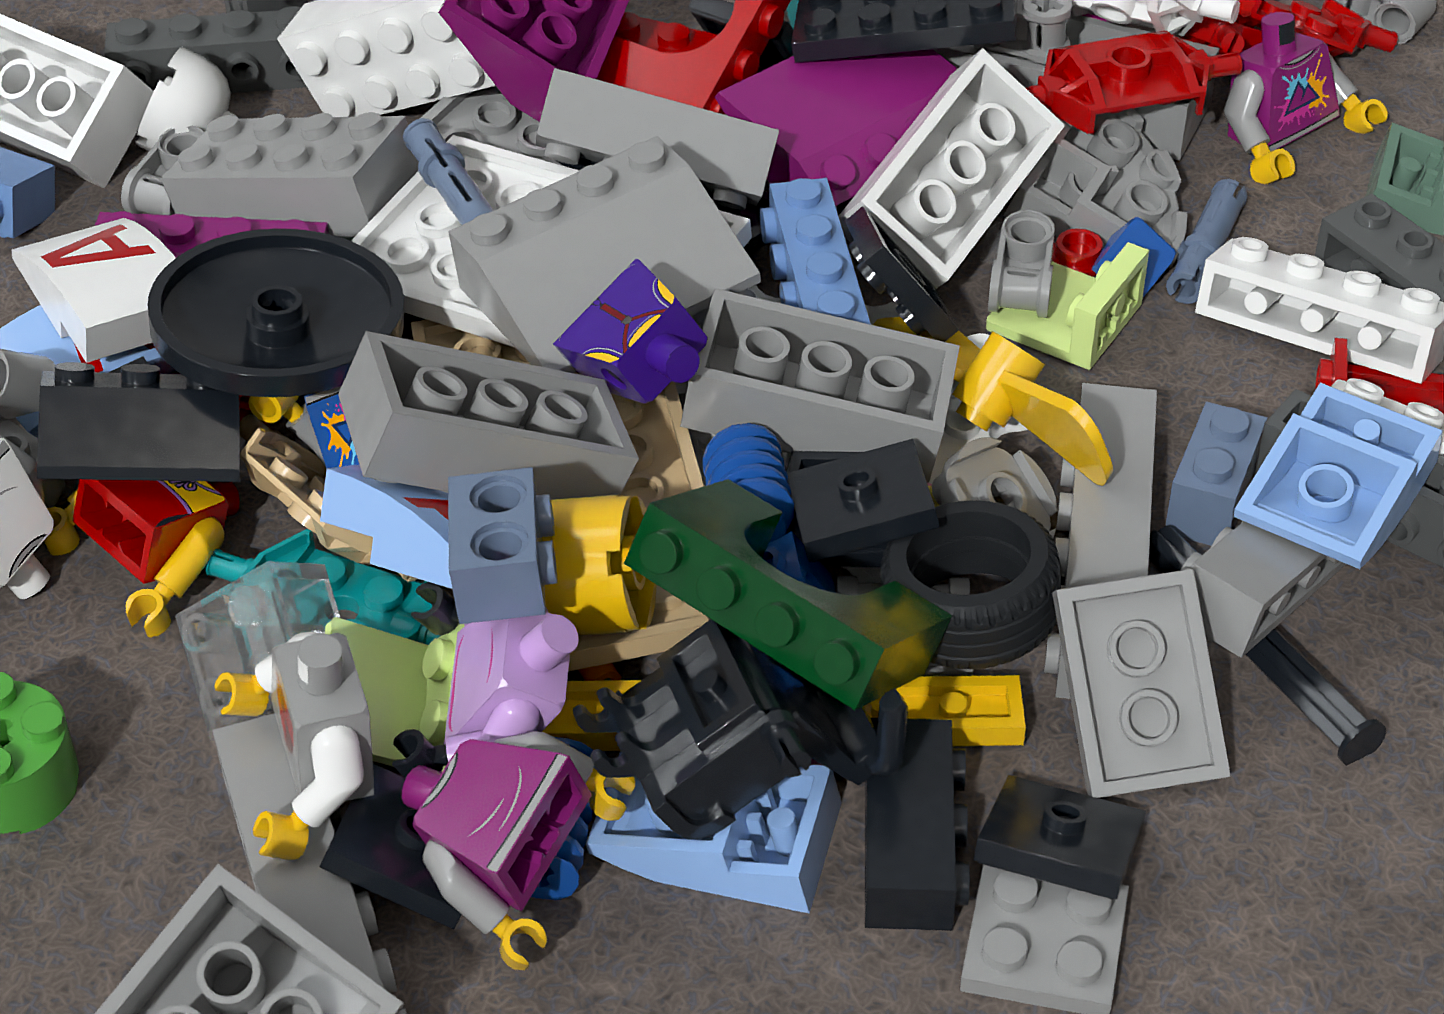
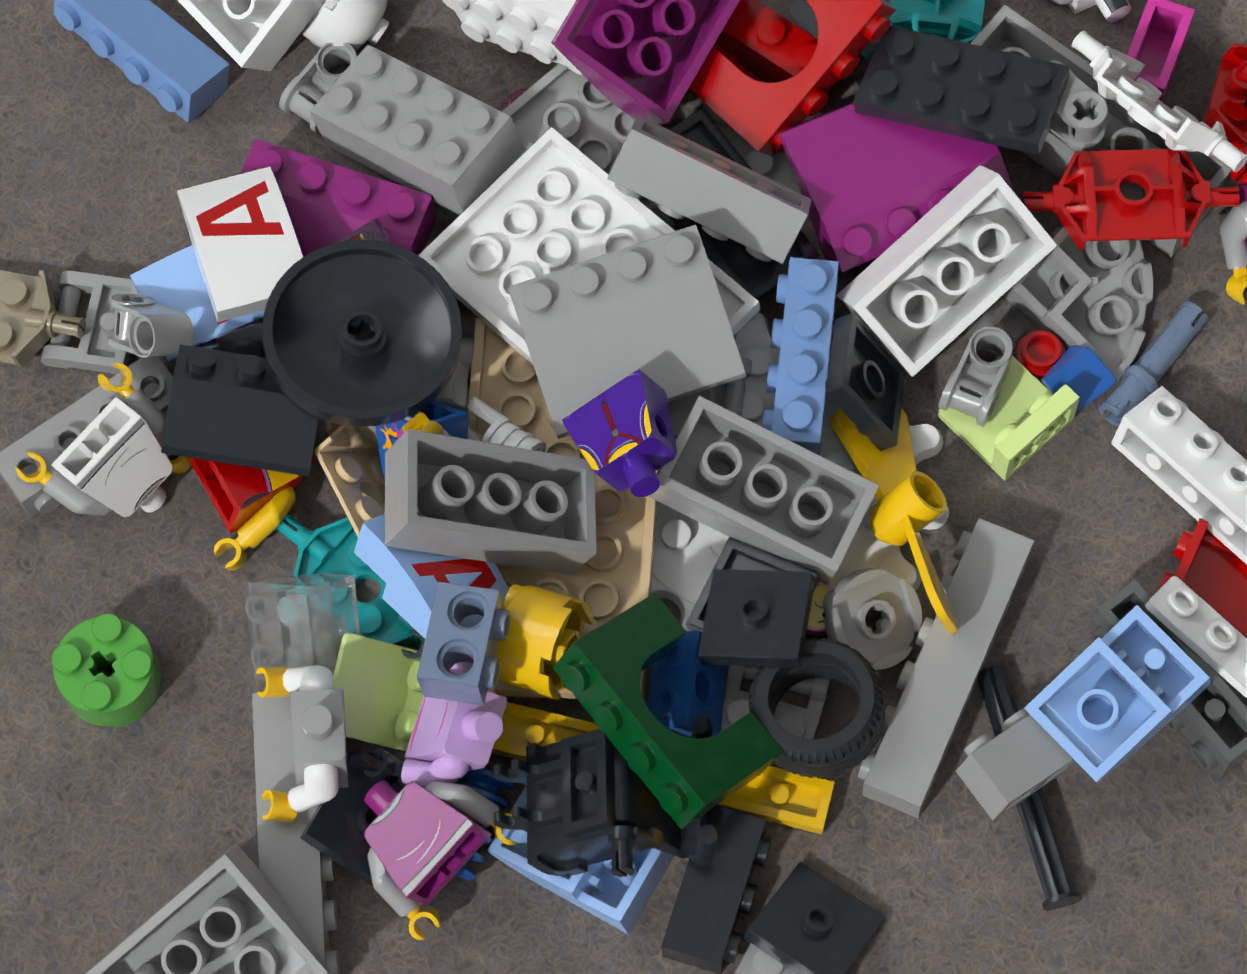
camera: 20 degrees right, 25 degrees up
(444, 169) = (530, 179): sand blue pin -> none
(754, 461) = (683, 569): blue piece -> none
(1141, 683) = (909, 826): light grey plate -> none
(1214, 472) = (1052, 629): sand blue brick -> none

